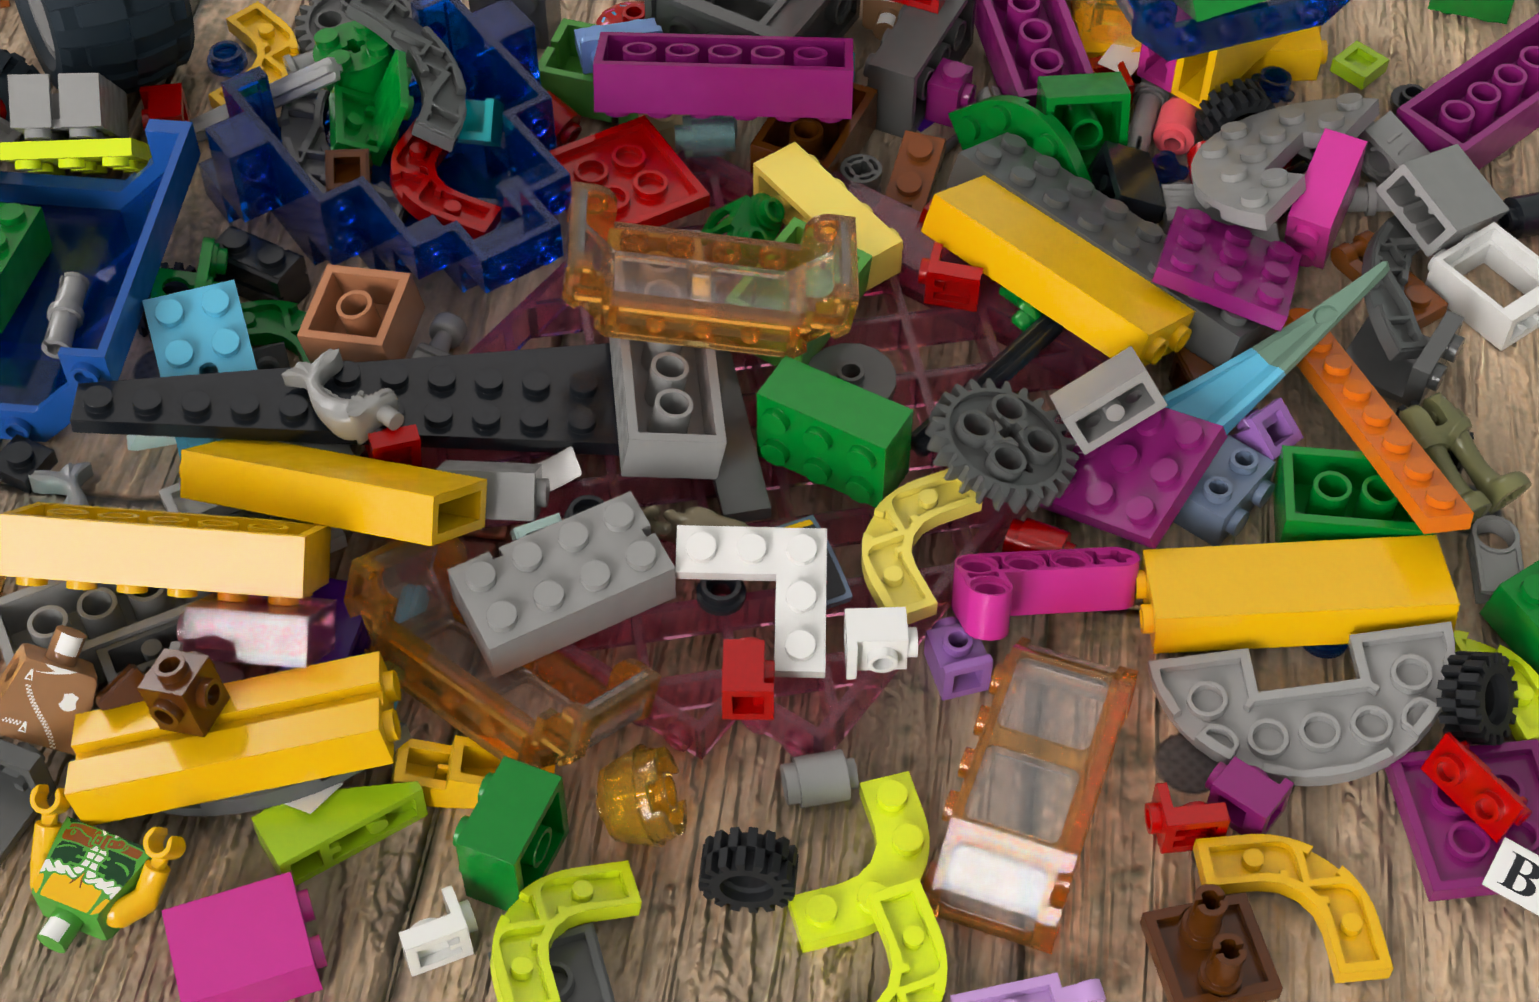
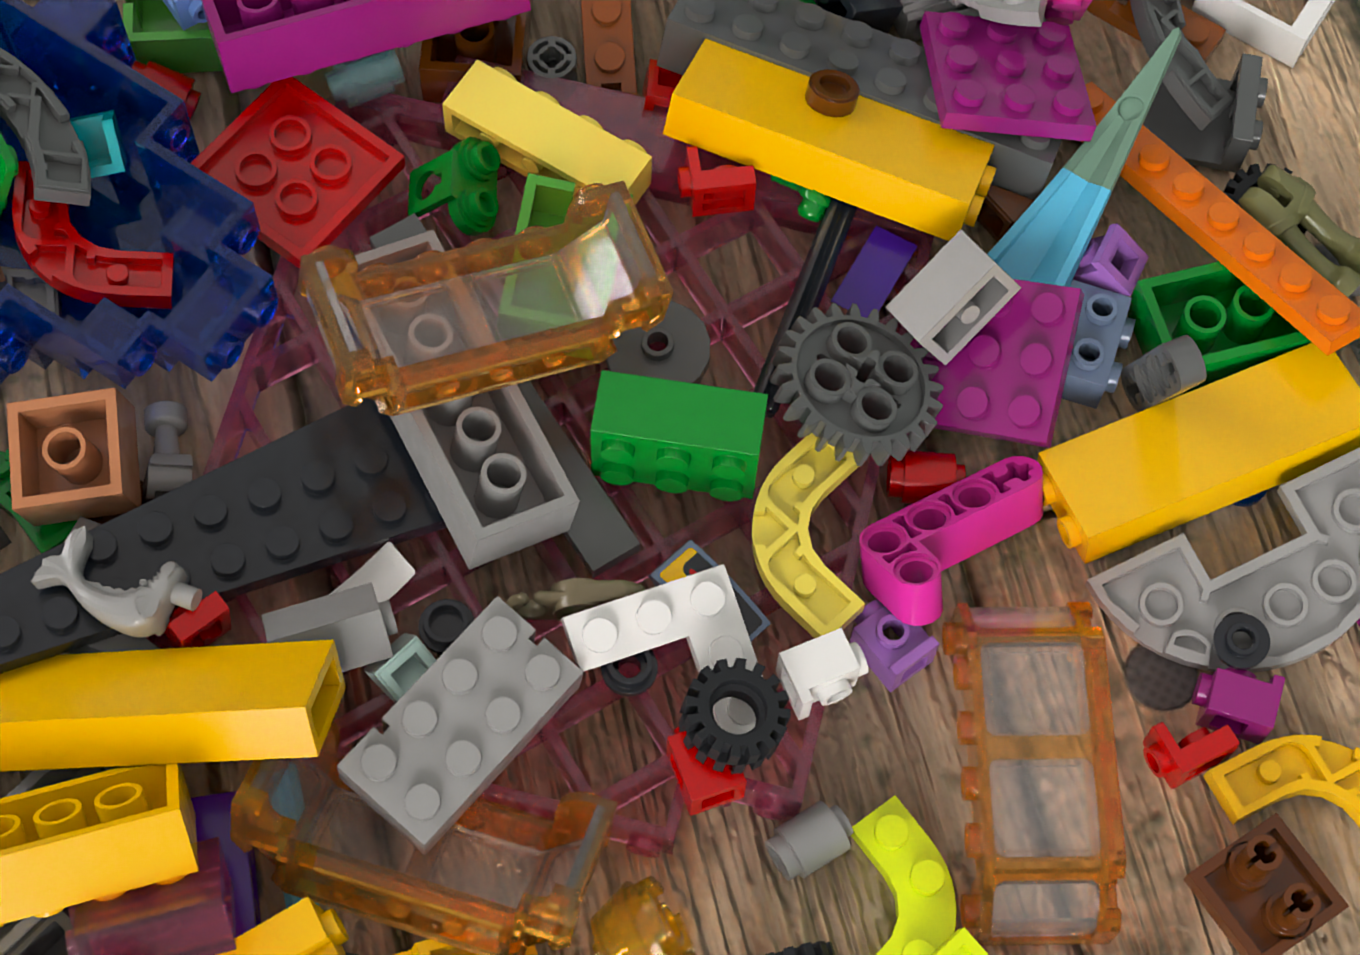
camera: 25 degrees left, 15 degrees up
(776, 657) = (749, 687): none -> black tyre
(1055, 377) = (874, 271): none -> dark purple sticker
(1070, 233) = (832, 93): none -> reddish brown tile
(1261, 755) = (1230, 653): none -> black plate
(1271, 502) = (1163, 373): none -> dark grey beam

